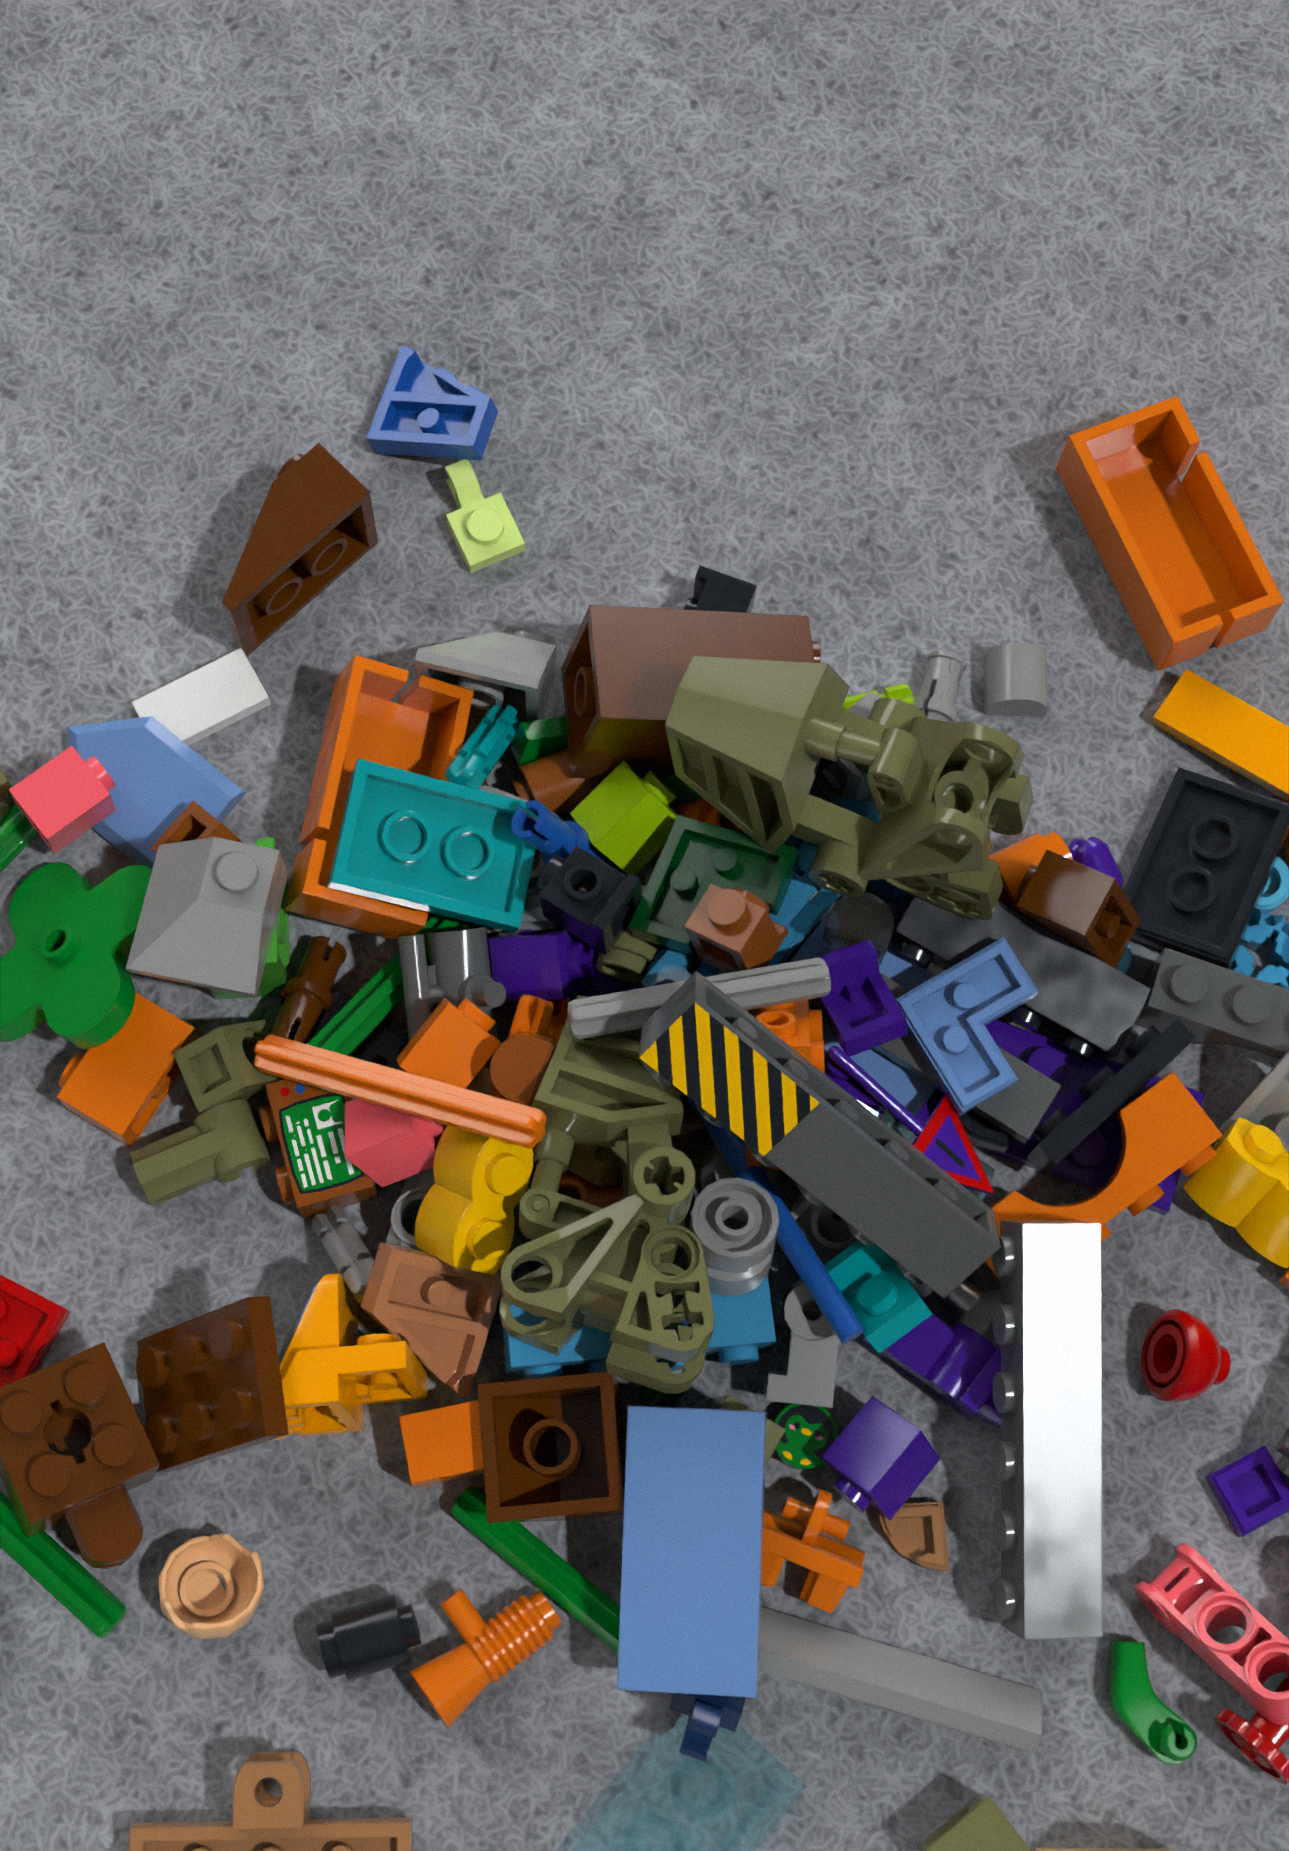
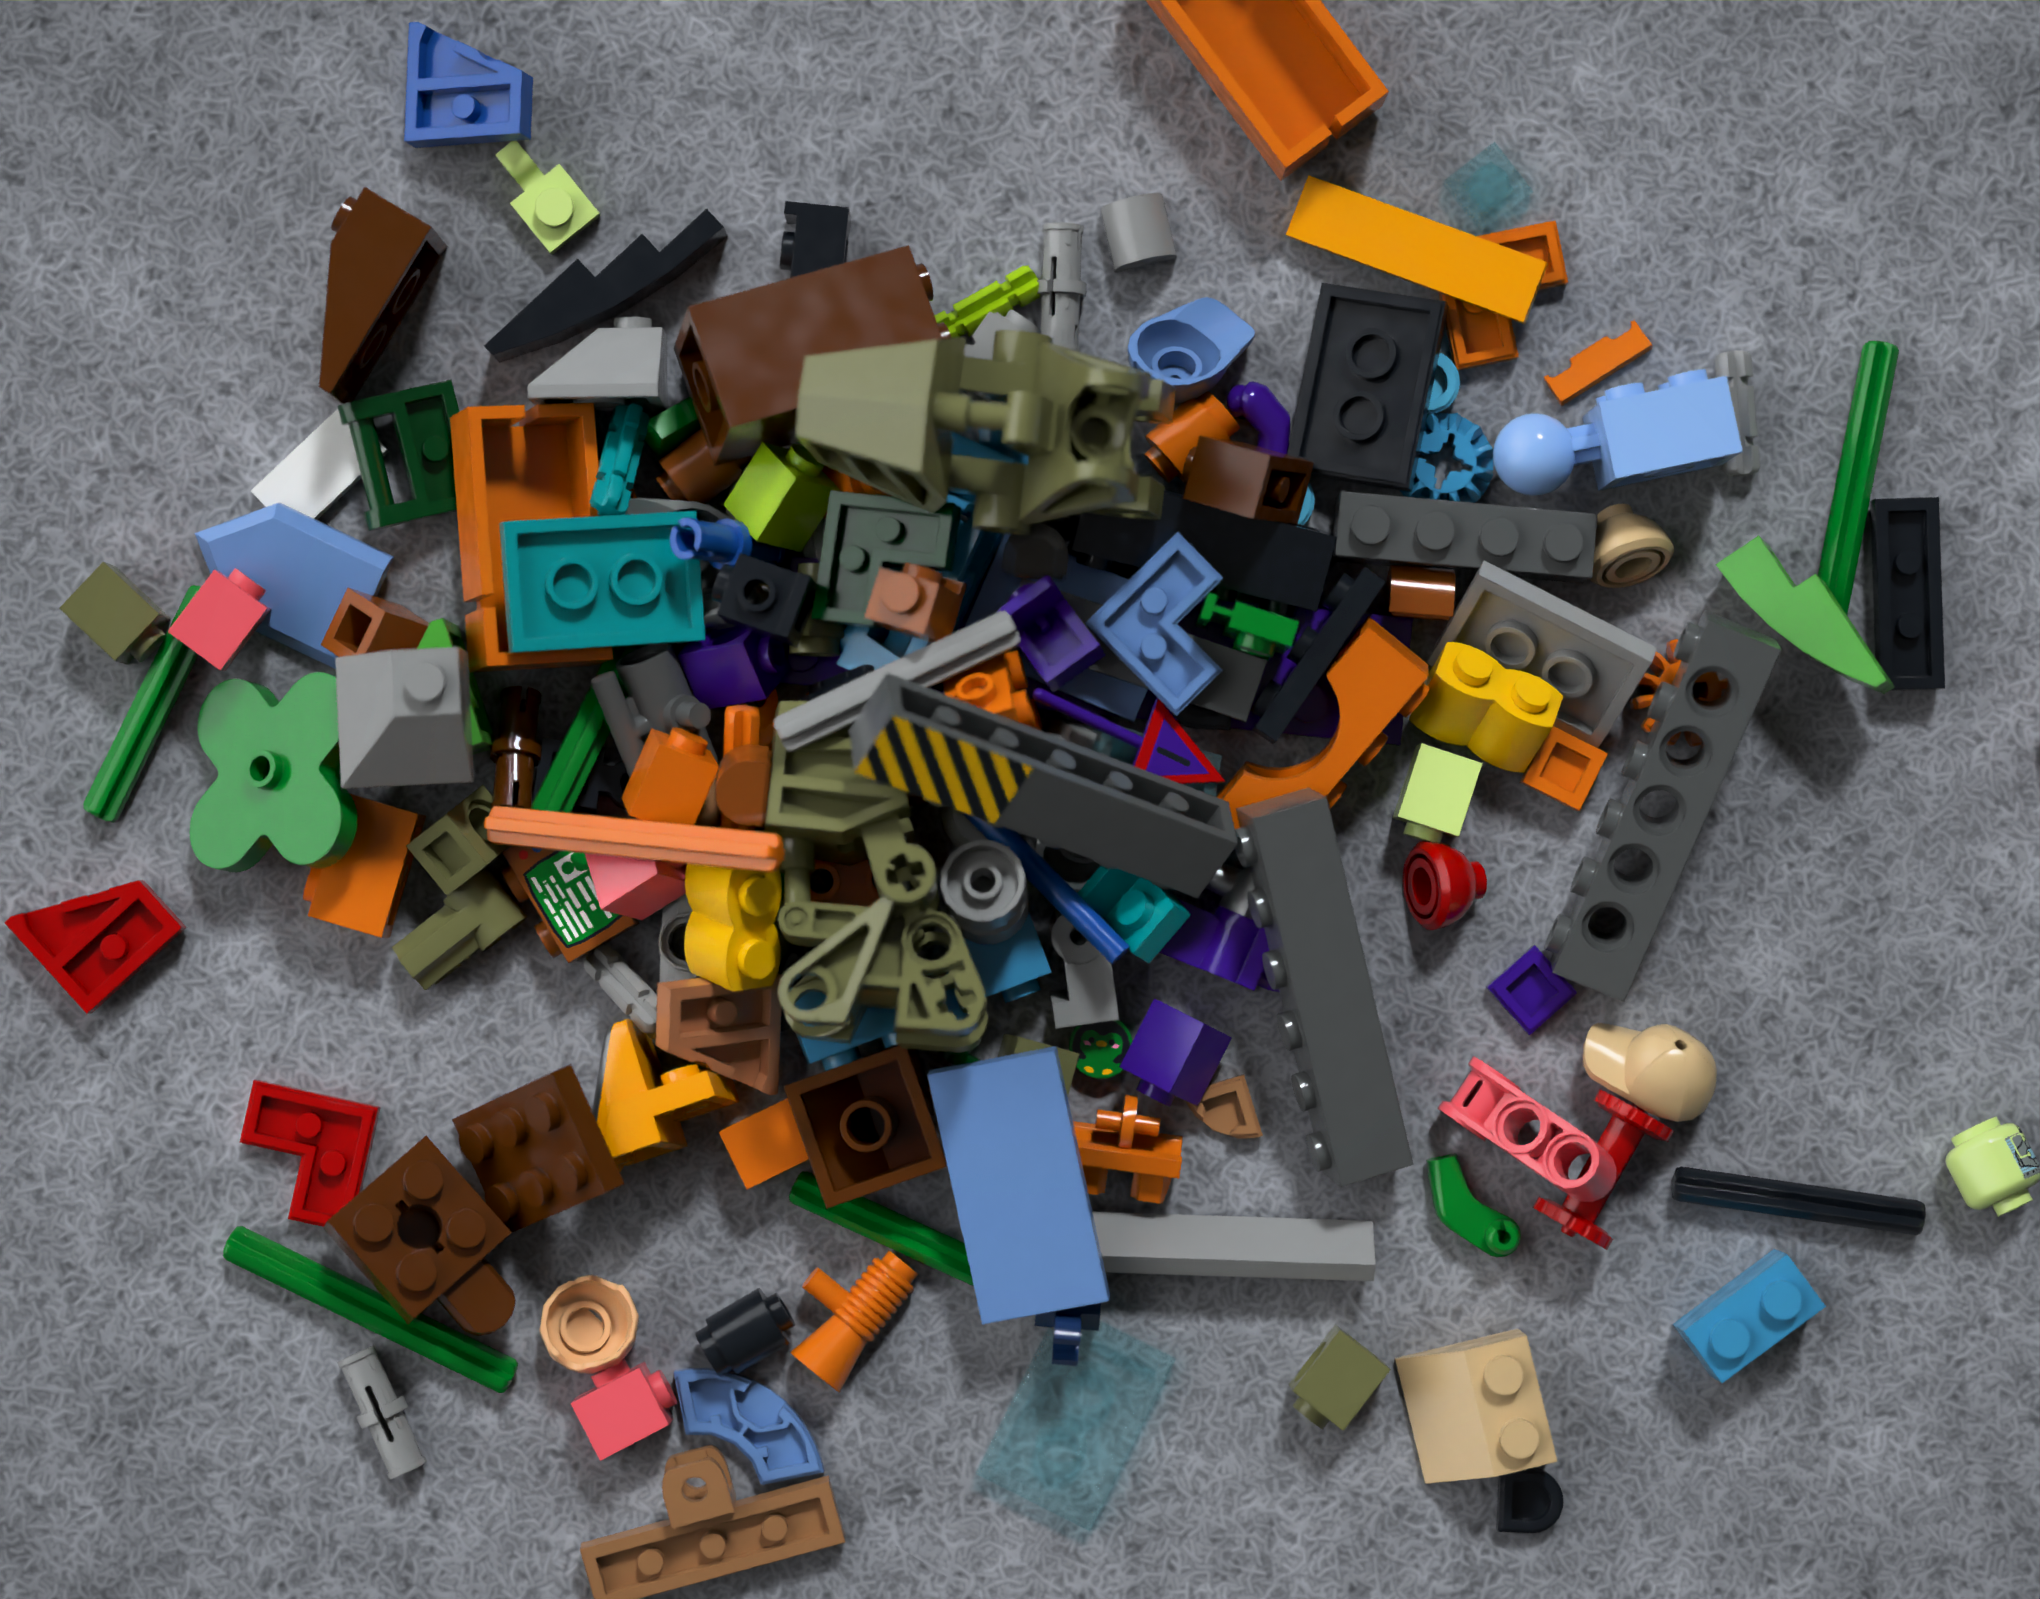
camera: 15 degrees left, 15 degrees up
(221, 1684) = (624, 1407): none -> coral brick
(305, 701) = (425, 442): none -> dark green plate
(349, 1736) = (749, 1418): none -> medium blue tile
(530, 605) = (583, 301): none -> black slope
(1053, 1043) = (1252, 628): none -> green plate
(1058, 793) = (1196, 337): none -> medium blue cap
(1197, 1265) = (1436, 793): none -> yellowish green brick
(1218, 1071) = (1420, 592): none -> dark orange brick

